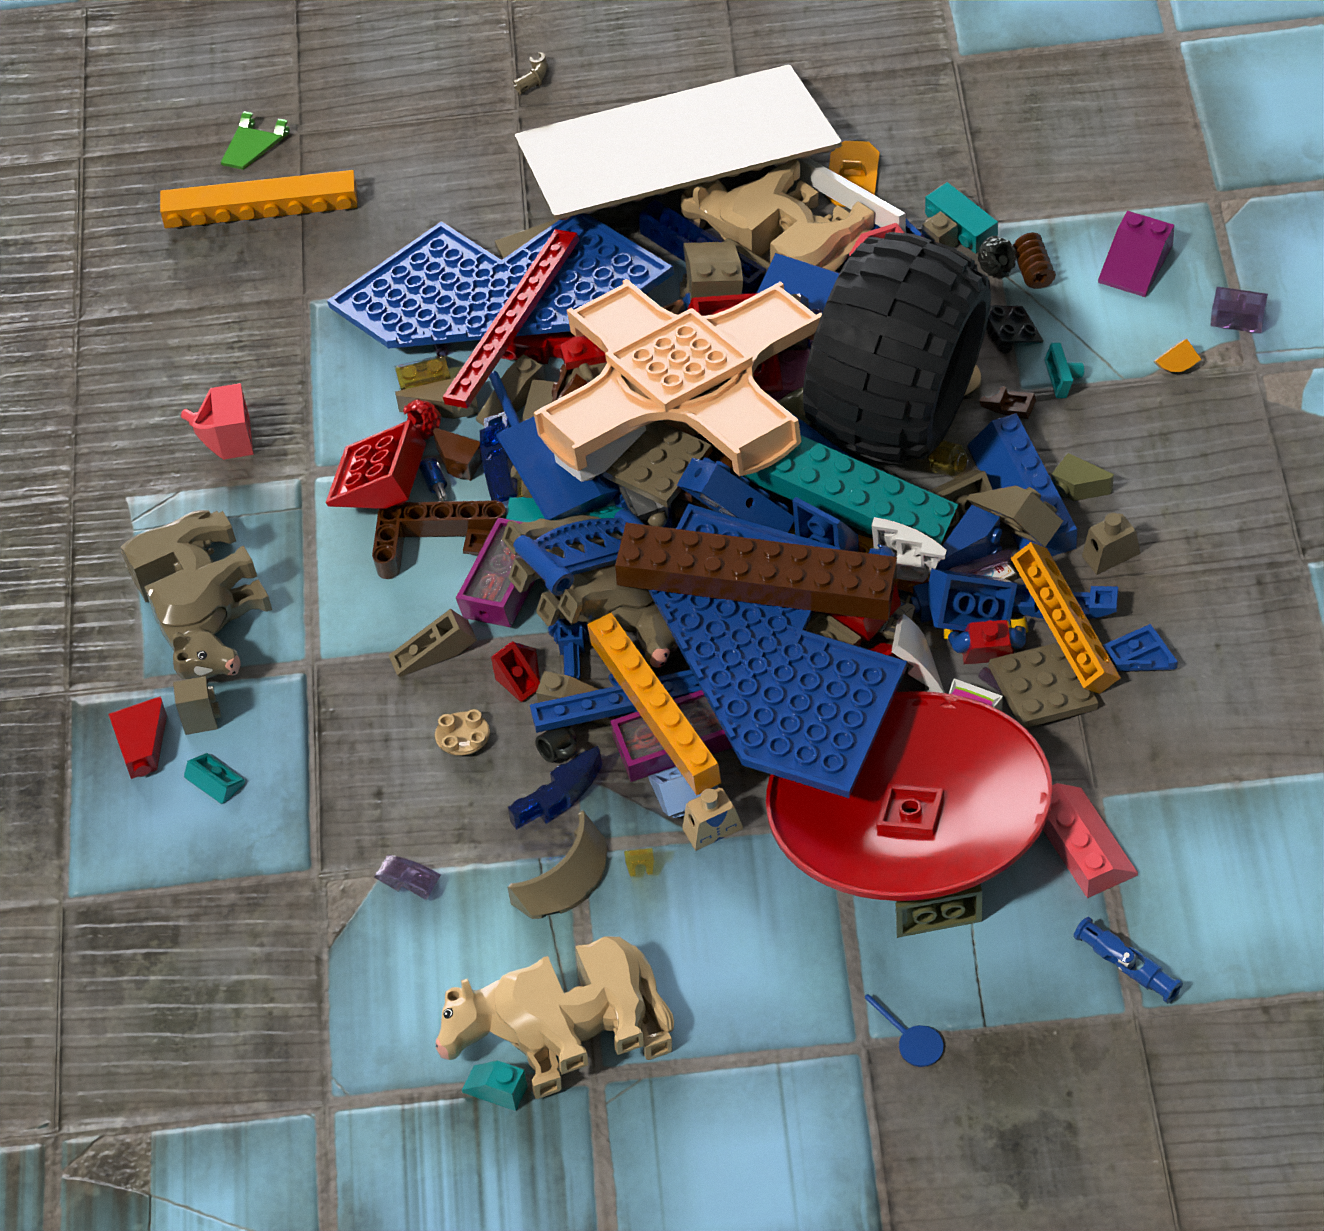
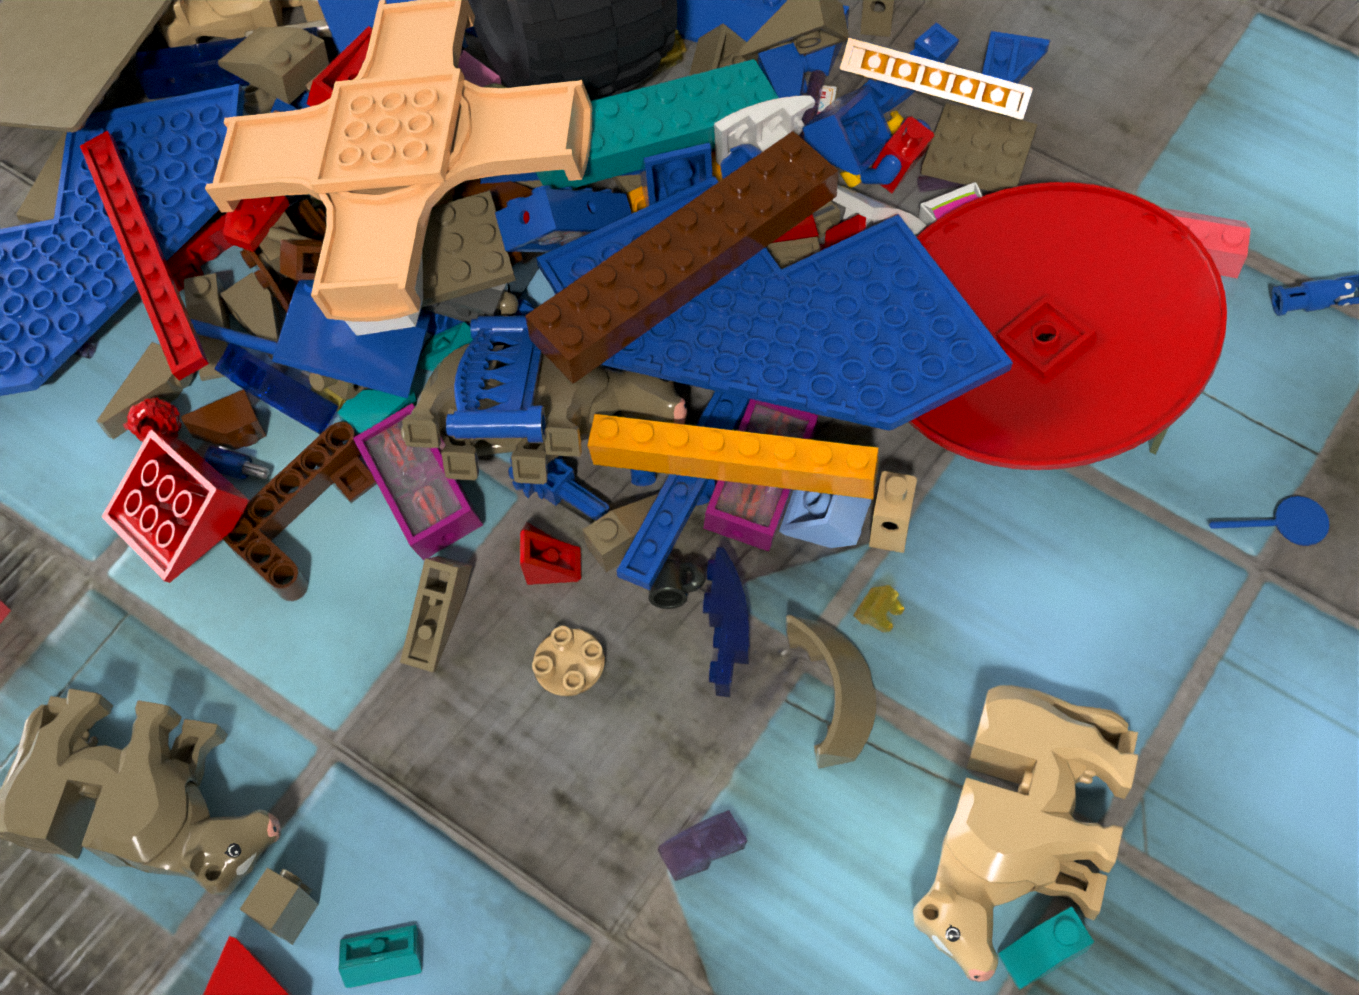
camera: 50 degrees left, 10 degrees up
(422, 372) = (96, 383): clear yellow slope -> none

